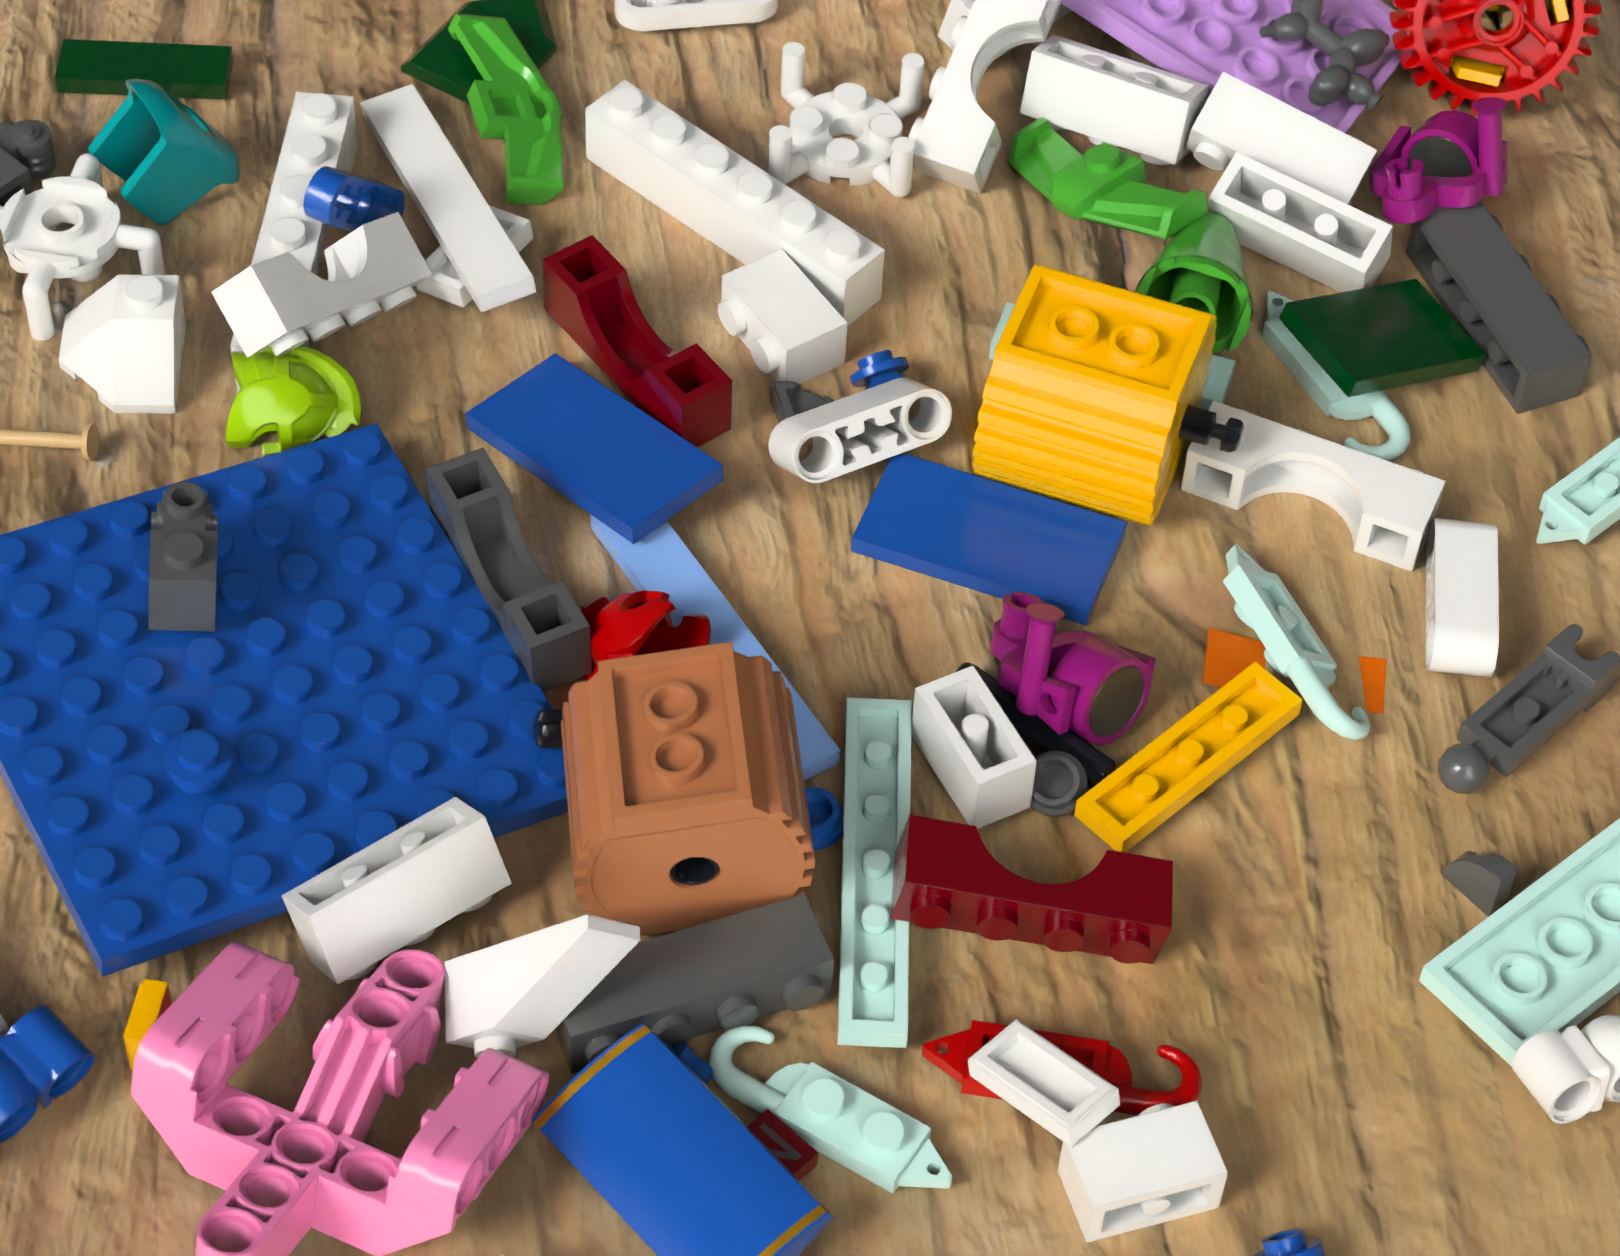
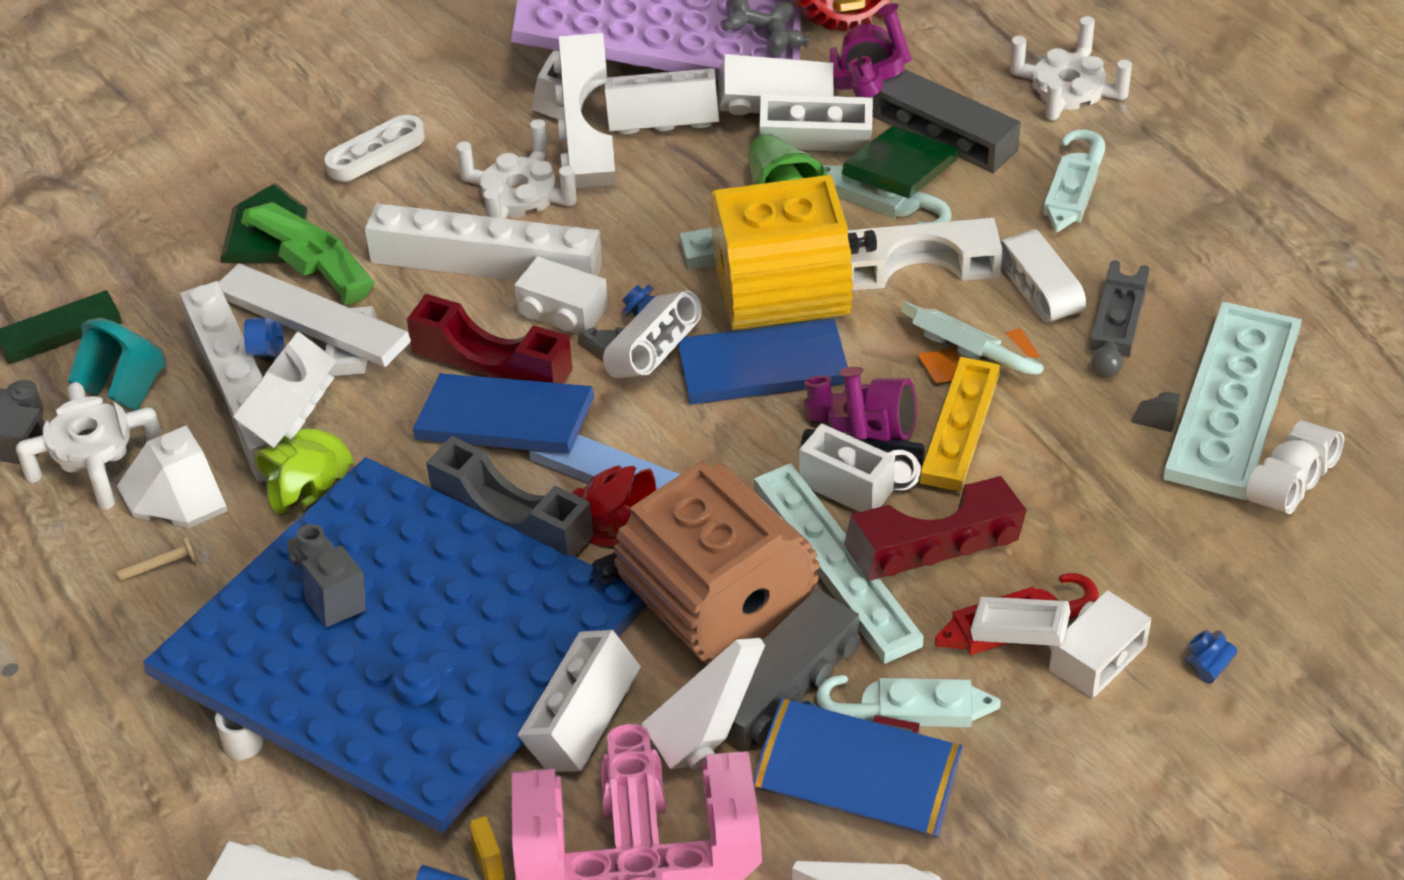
camera: 25 degrees left, 5 degrees down
(1101, 184) = (688, 147): bright green plate -> none

